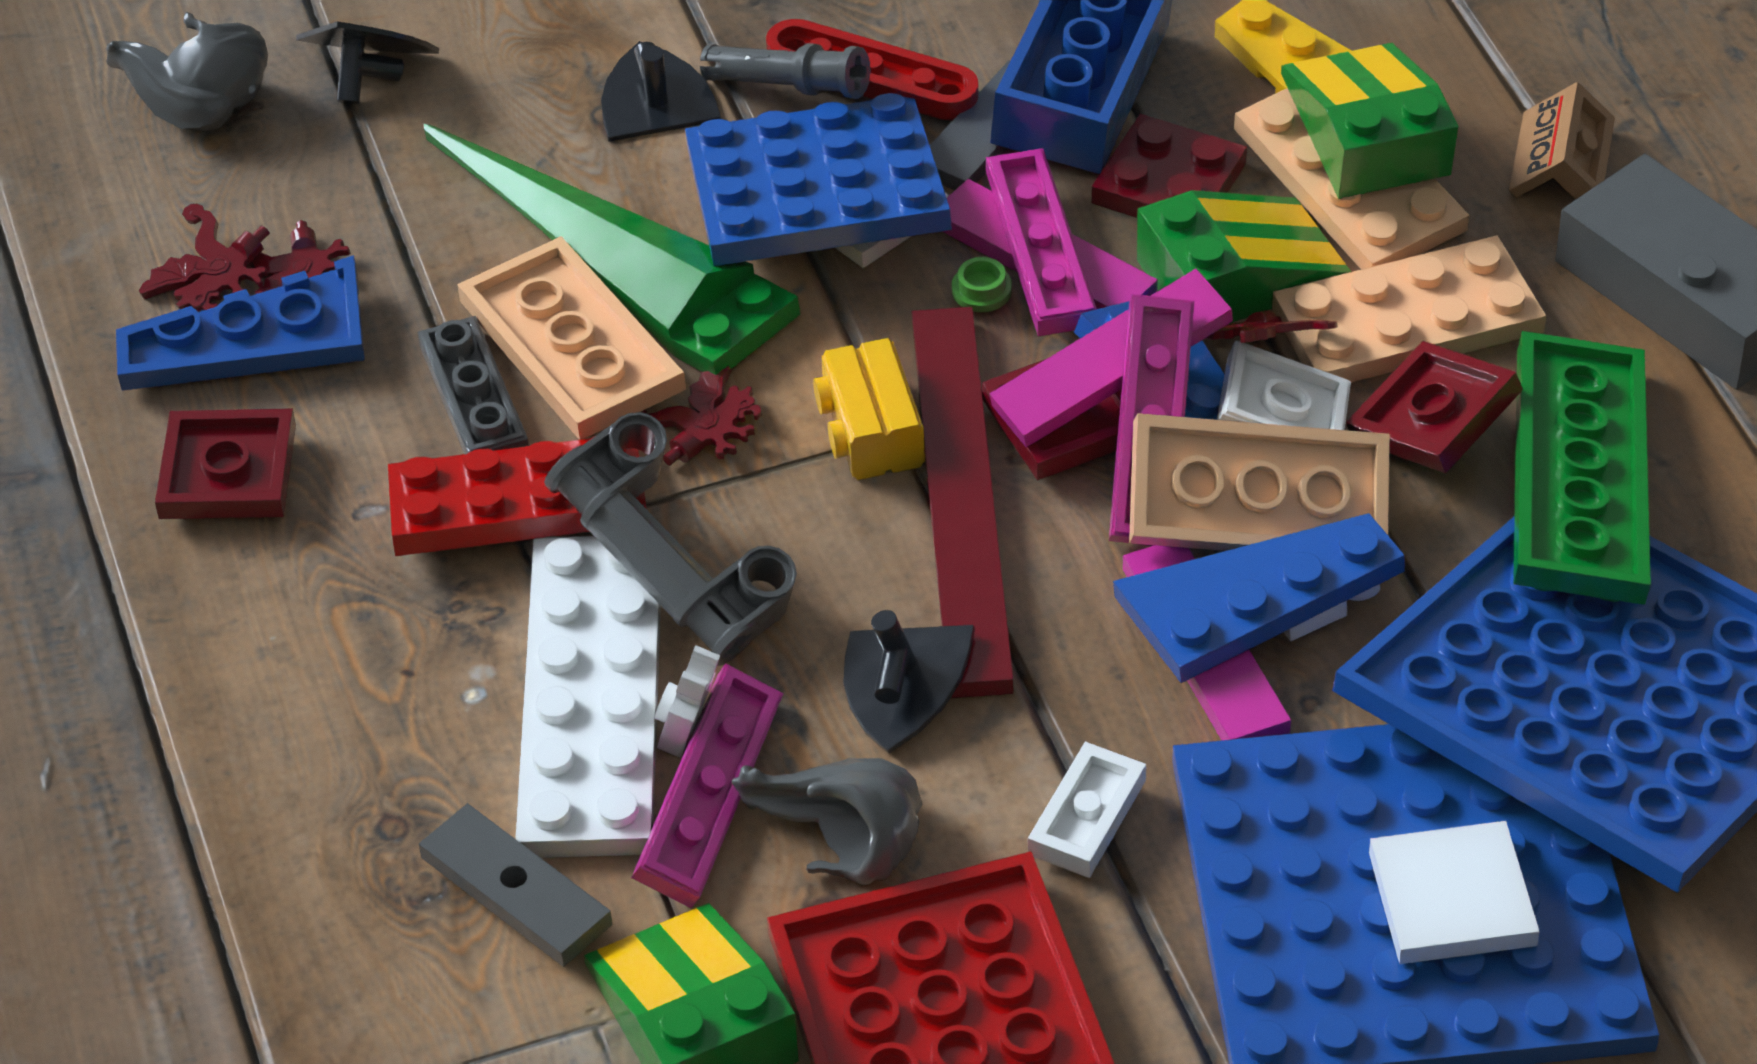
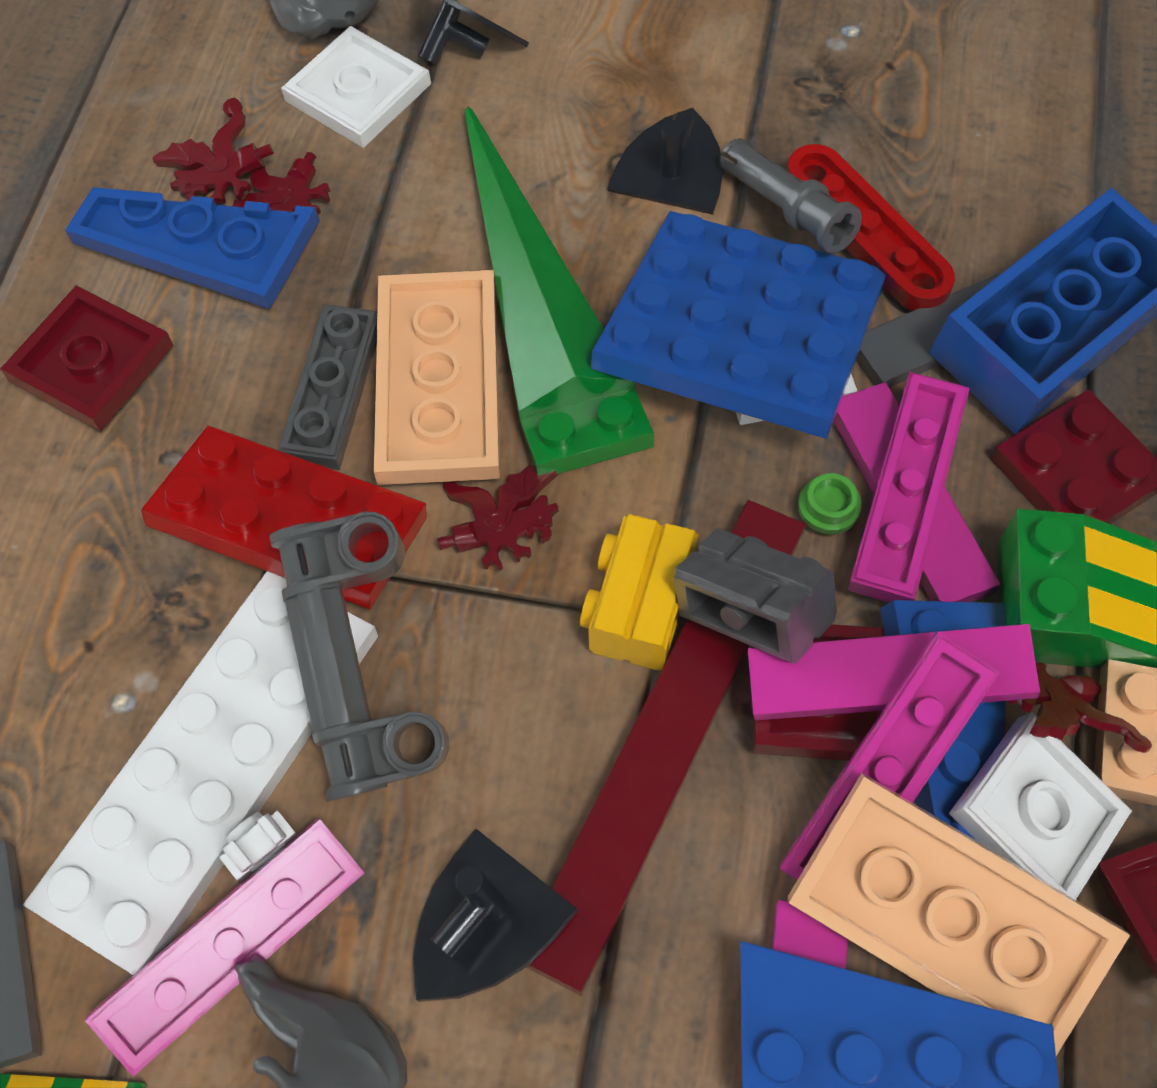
camera: 30 degrees right, 15 degrees up
(295, 151) = (356, 86): none -> white tile
(971, 350) = (756, 594): none -> flat silver brick

